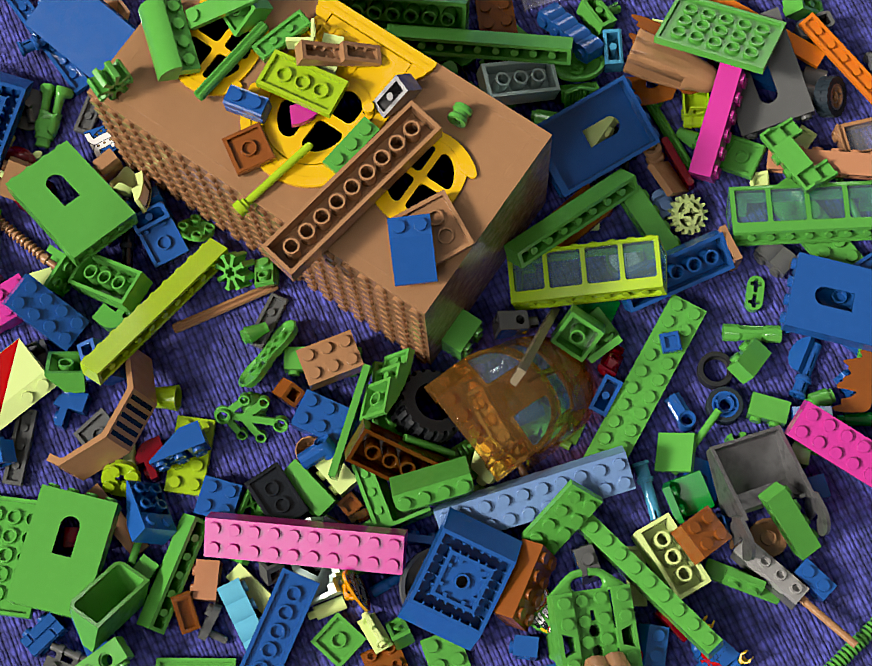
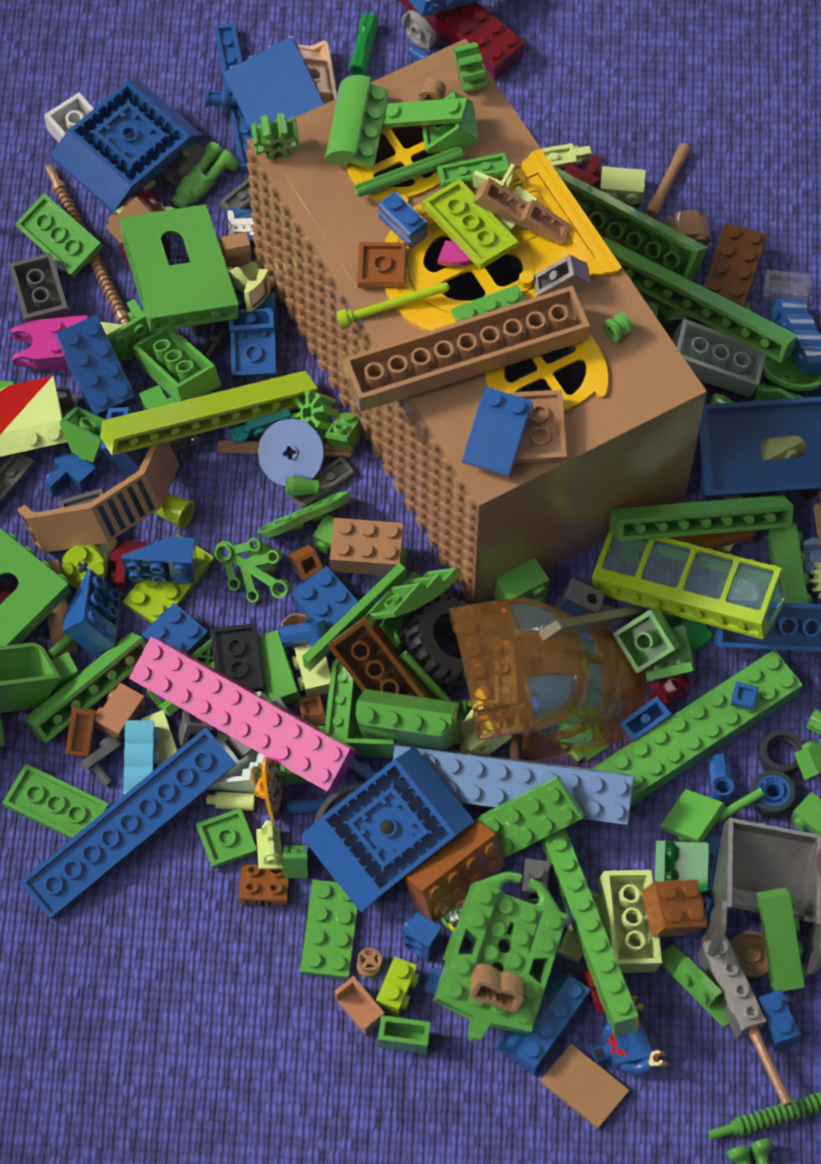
camera: 20 degrees right, 10 degrees down
(196, 229) = (295, 356): bright green dish -> none
(198, 299) = (257, 426): none -> teal hinge
(234, 294) = (279, 439): none -> piece
(645, 480) = (644, 831): dark azure pin -> none

